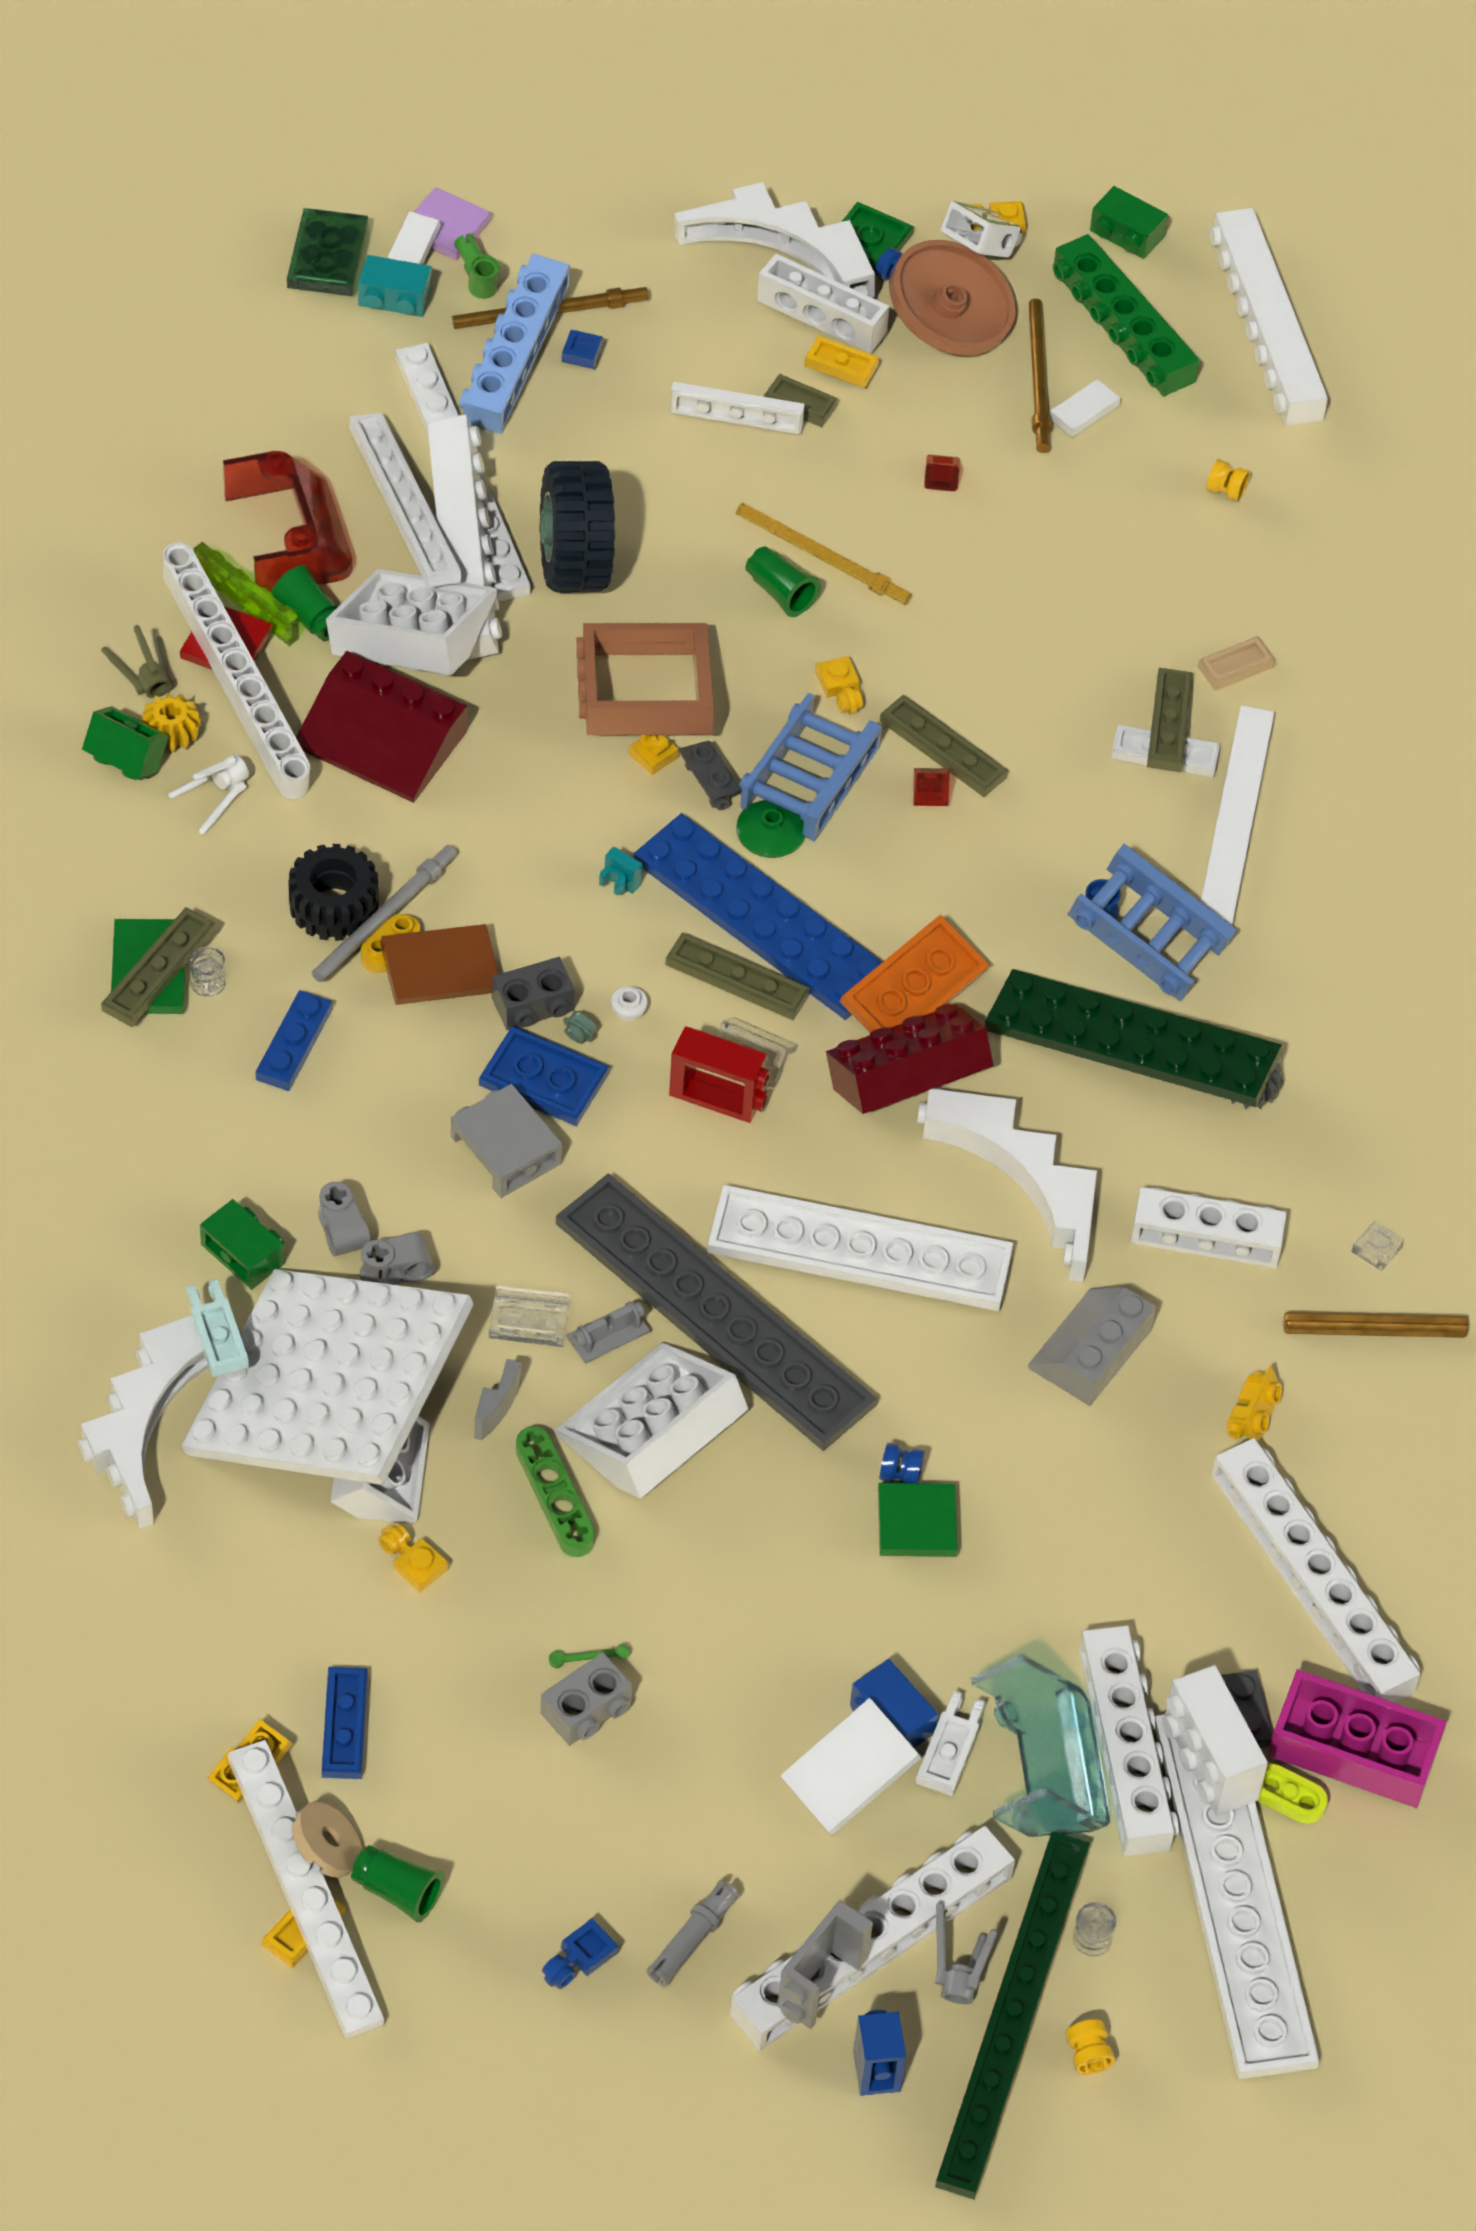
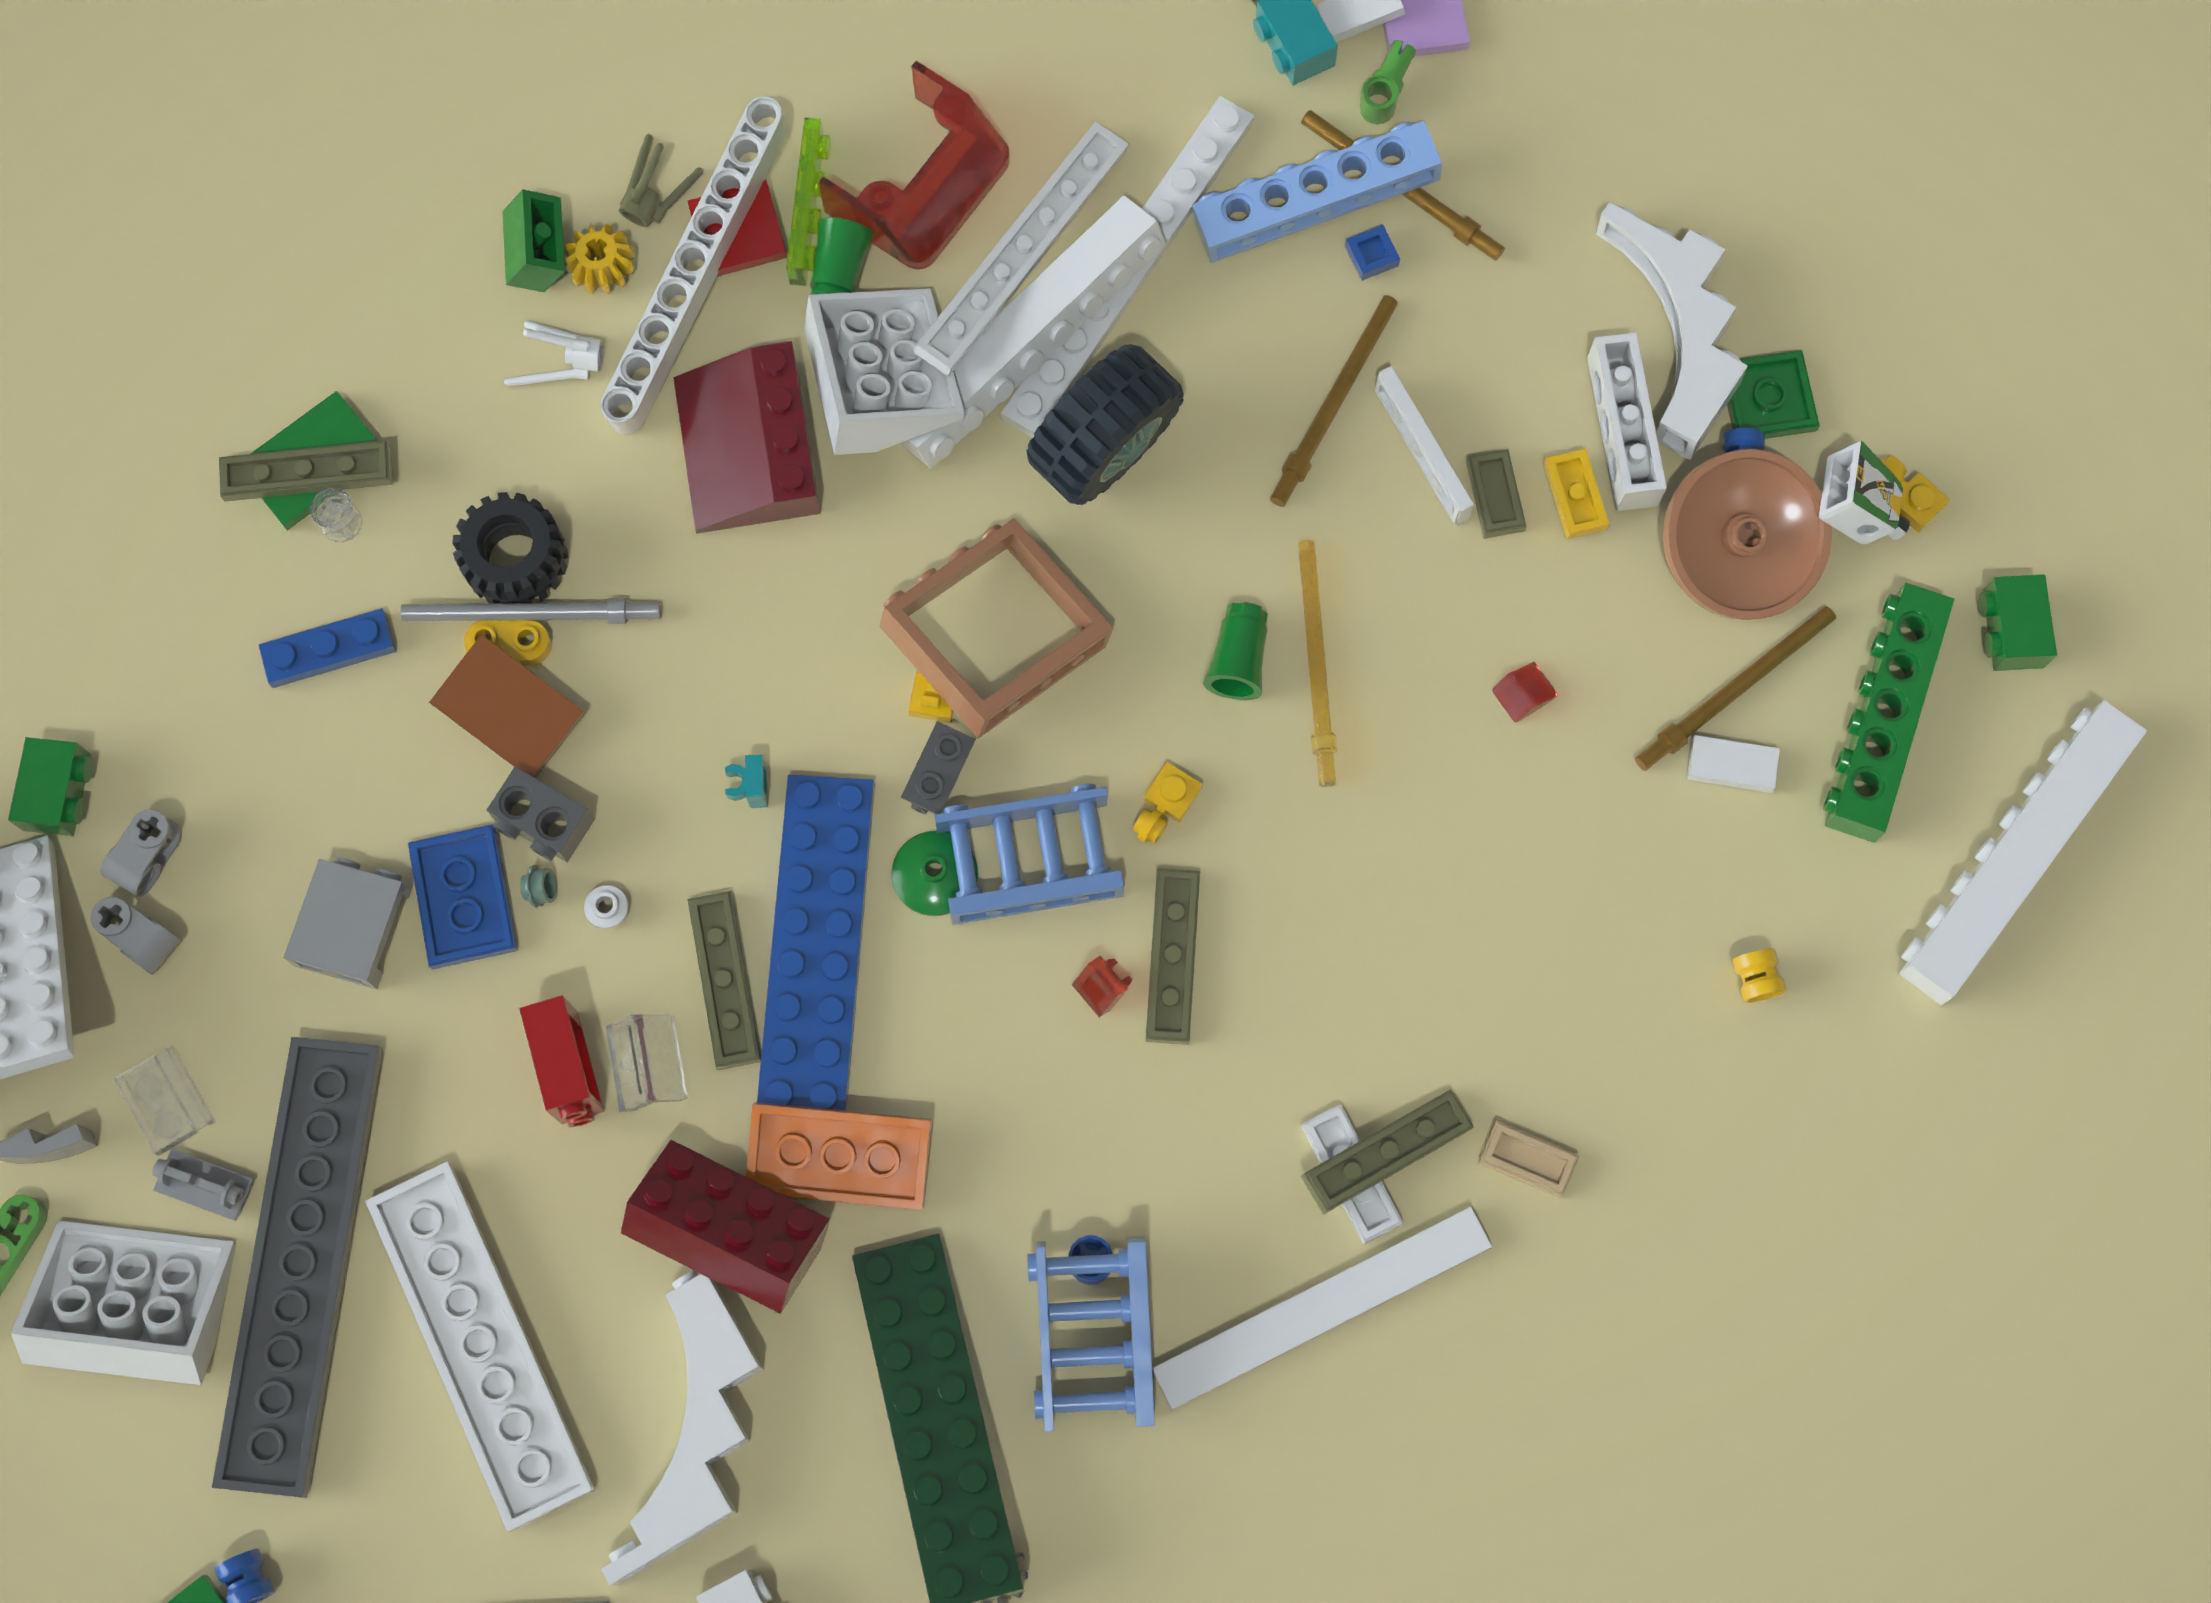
camera: 55 degrees right, 20 degrees up
(683, 475) = (1299, 464): none -> pearl gold bar

